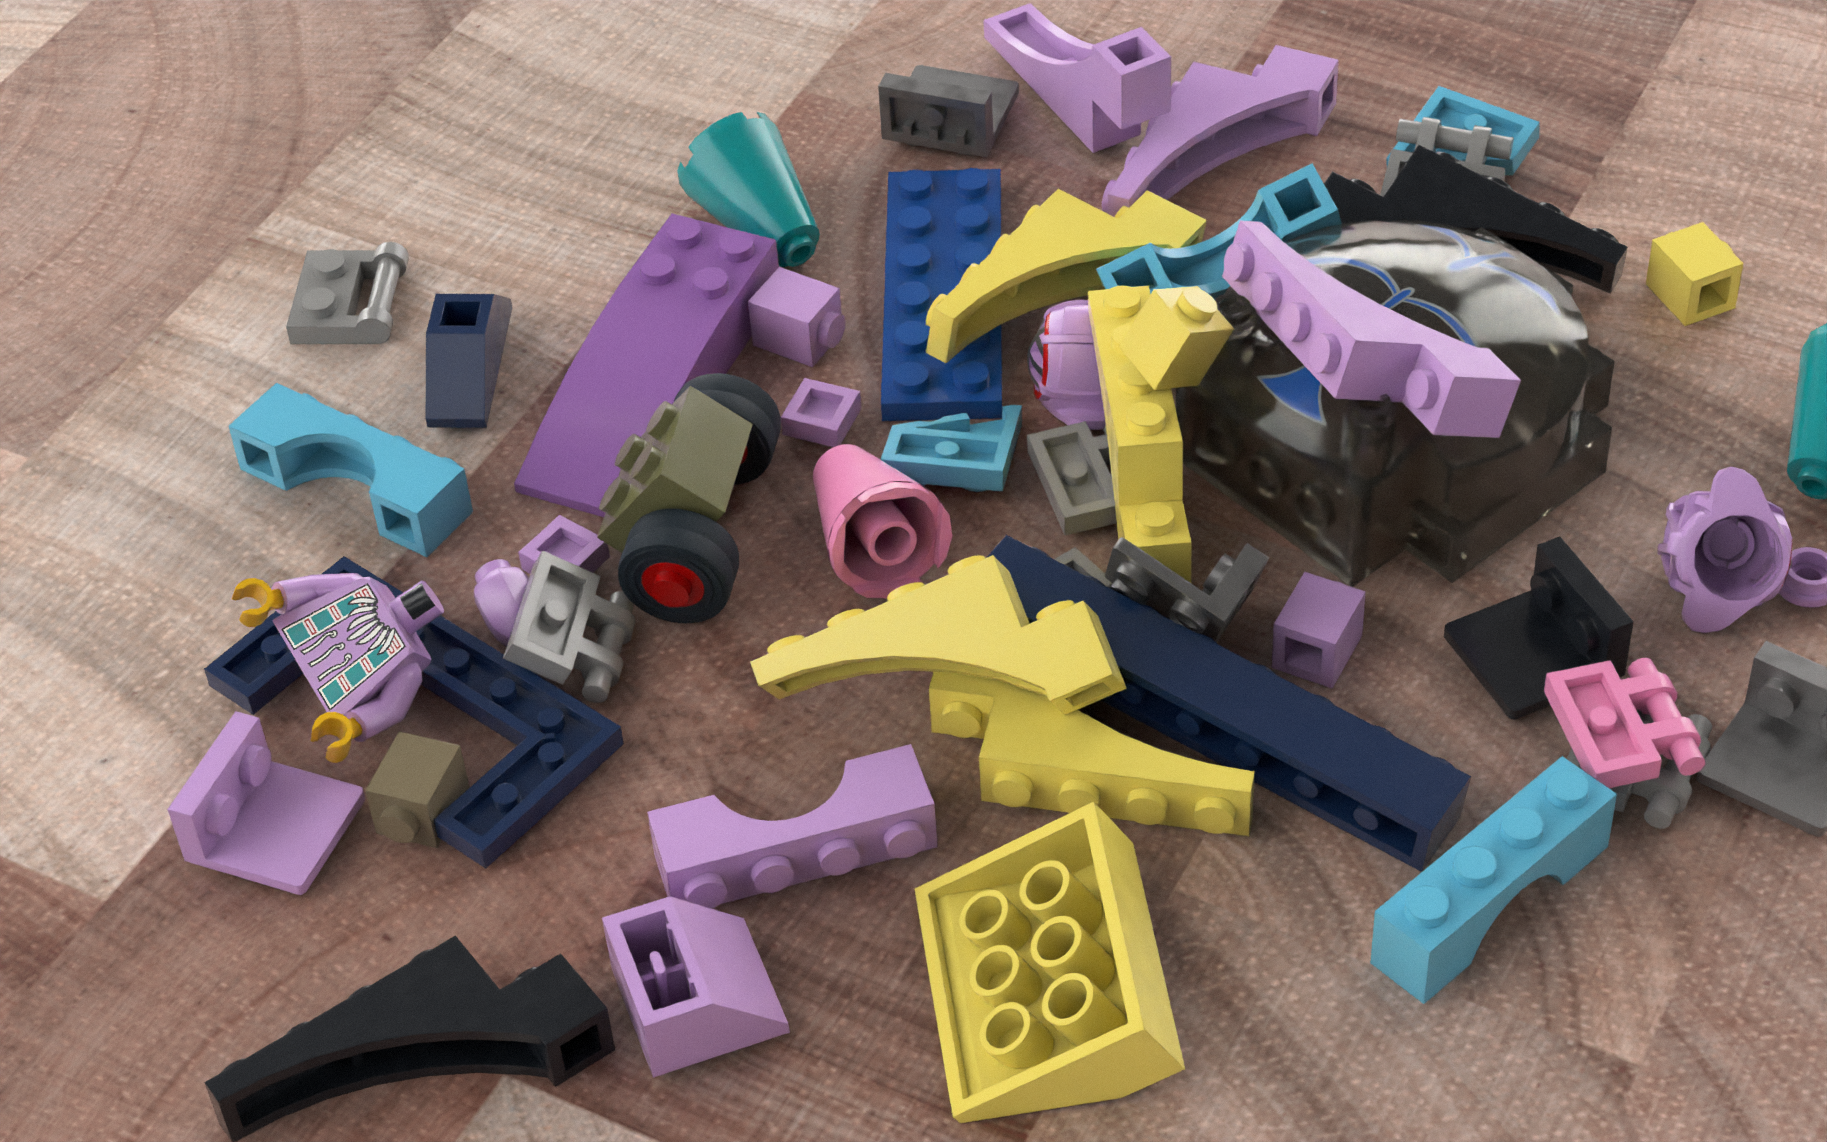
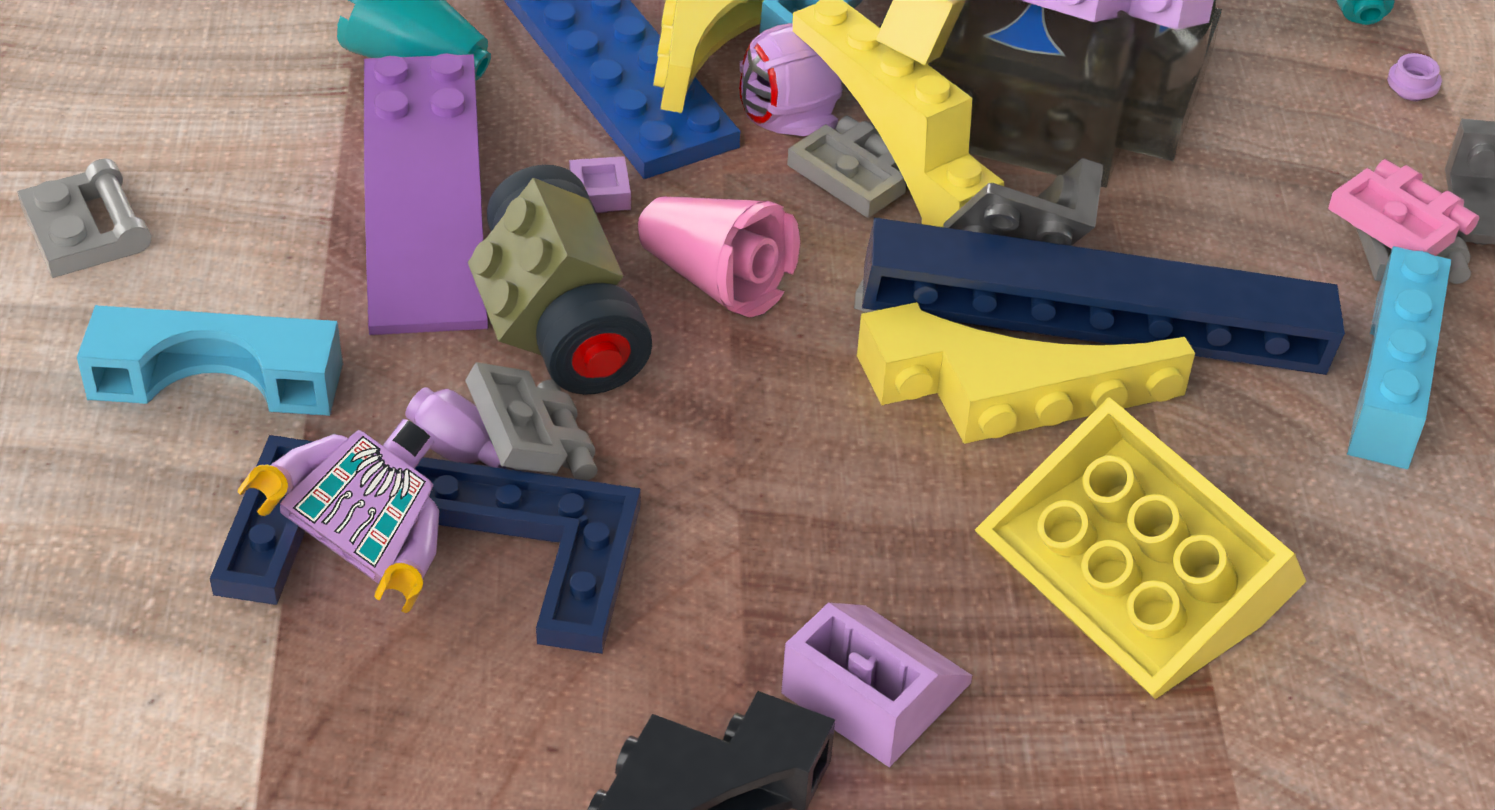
camera: 35 degrees left, 0 degrees up
(260, 815) = (372, 686): lavender bracket -> none
(414, 786) = (497, 608): dark tan brick -> none
(464, 358) = (251, 234): dark blue slope -> none
(567, 542) = (457, 359): lavender plate -> none
(722, 856) = (801, 562): lavender arch -> none
(796, 317) = (521, 116): lavender brick -> none
(954, 451) = (745, 175): medium azure wing -> none
(955, 625) = (903, 298): light yellow arch -> none
(1318, 629) = (1128, 217): lavender brick -> none
(1551, 628) = (1287, 168): black bracket -> none
(1725, 550) = (1350, 68): lavender piece -> none

